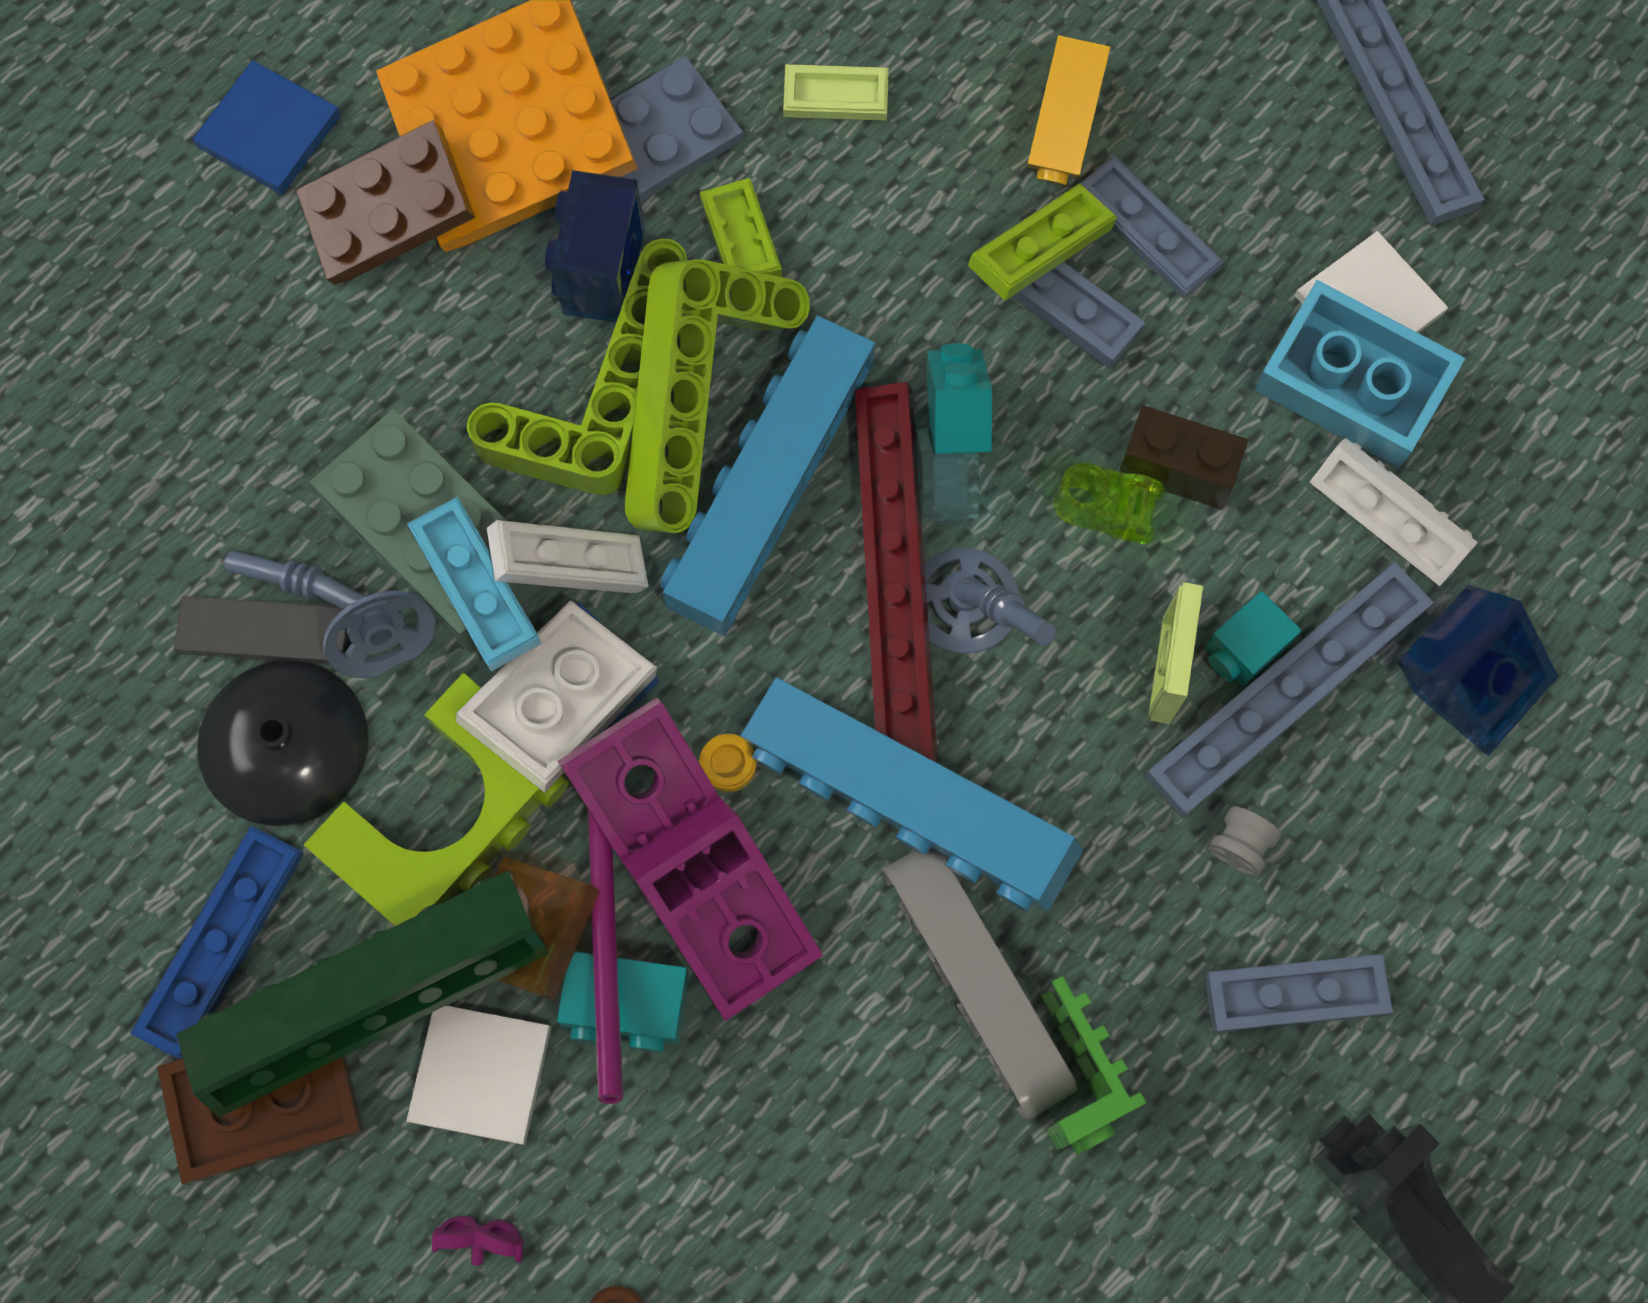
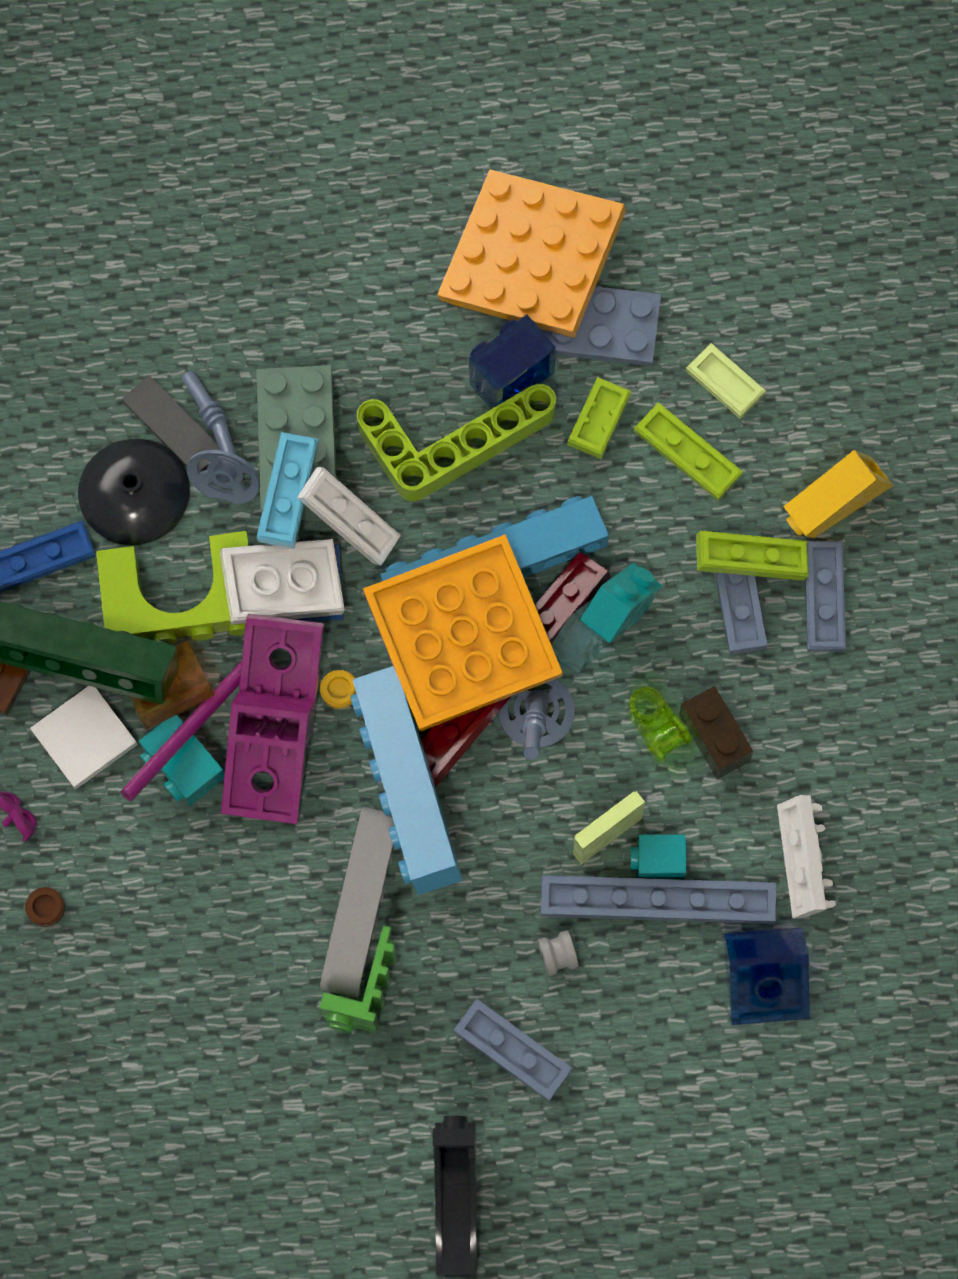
camera: 45 degrees right, 0 degrees up
(267, 127) = (407, 154): blue tile -> none
(385, 203) = (428, 248): plate -> none
(689, 375) = (494, 472): lime beam -> none
(818, 577) = (462, 632): none -> light orange plate
(866, 195) = (688, 451): none -> lime tile
(1359, 374) = (850, 768): medium azure brick -> none
(1383, 282) = (907, 738): white tile -> none

